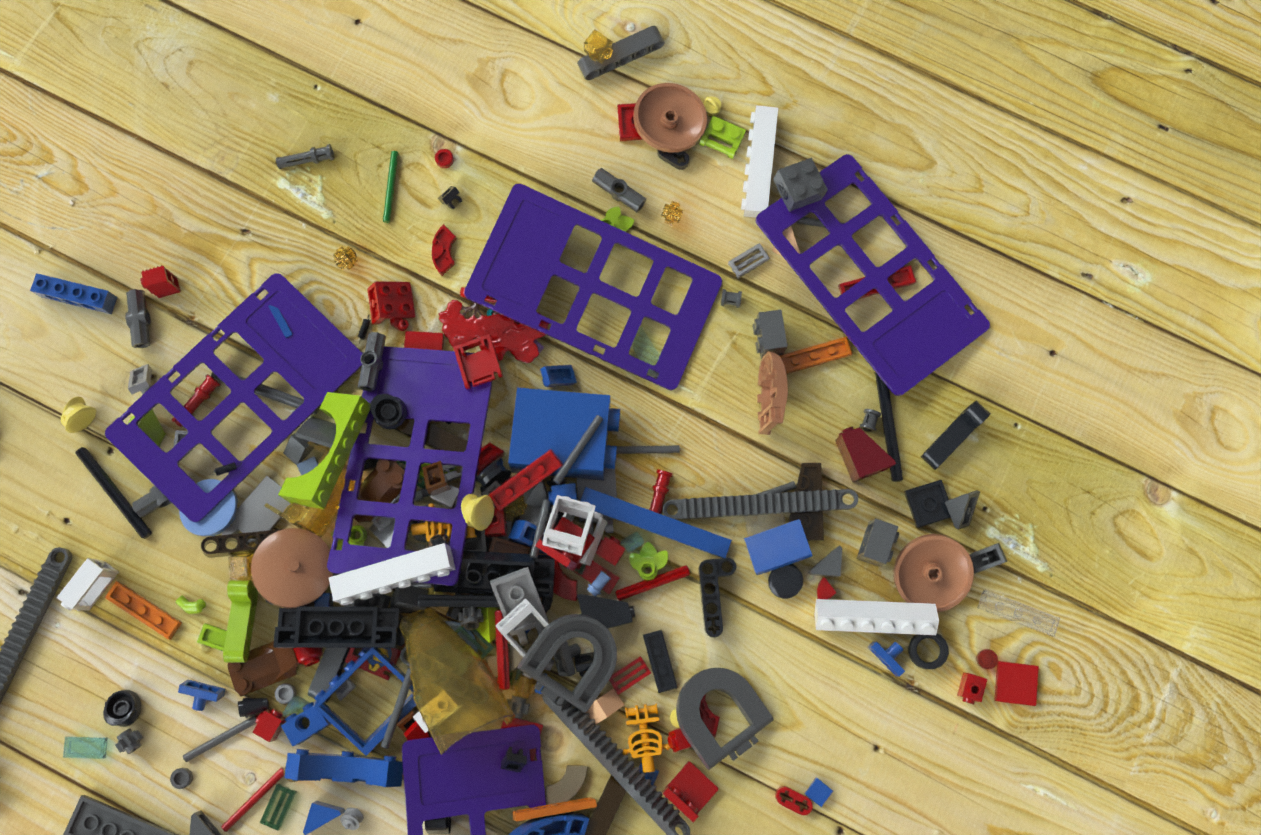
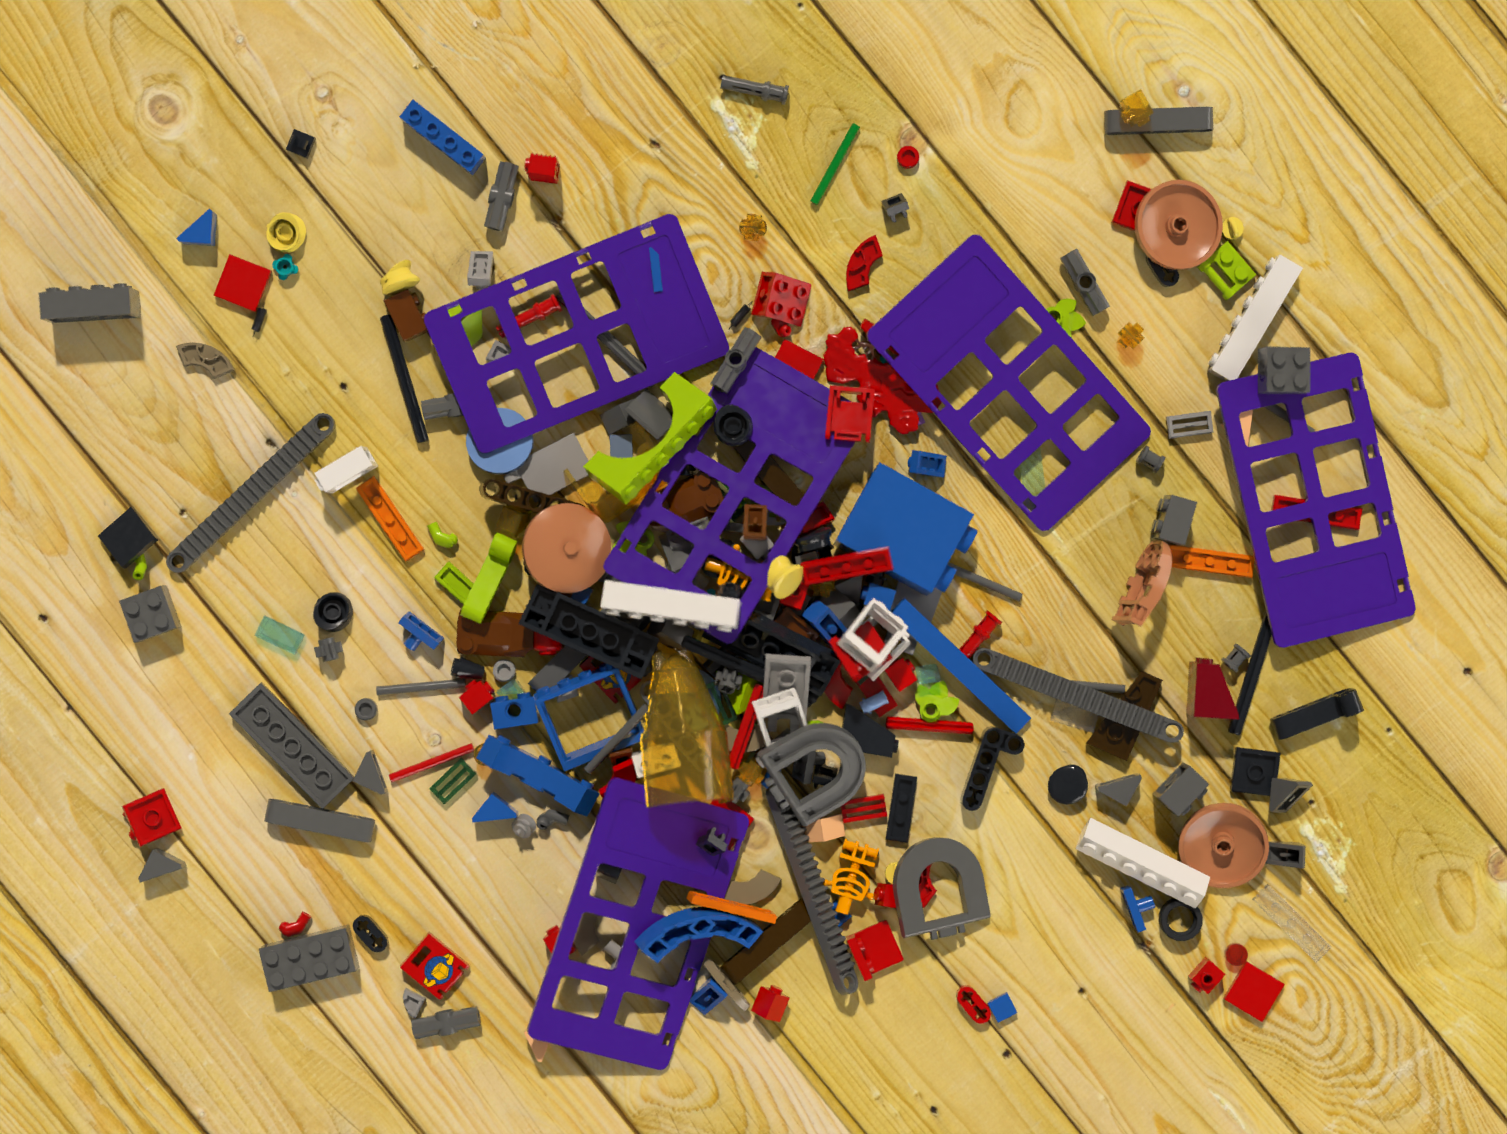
camera: 25 degrees right, 10 degrees up
(93, 440) = (407, 315): none -> reddish brown brick
(226, 468) = (540, 410): black piece -> none
(372, 800) = (550, 817): none -> dark grey arm
(540, 528) = (840, 621): dark grey bar -> none
(578, 449) = (915, 559): dark grey bar -> none
(778, 547) = (1076, 748): blue tile -> none
(824, 589) = (1103, 811): red tile -> none

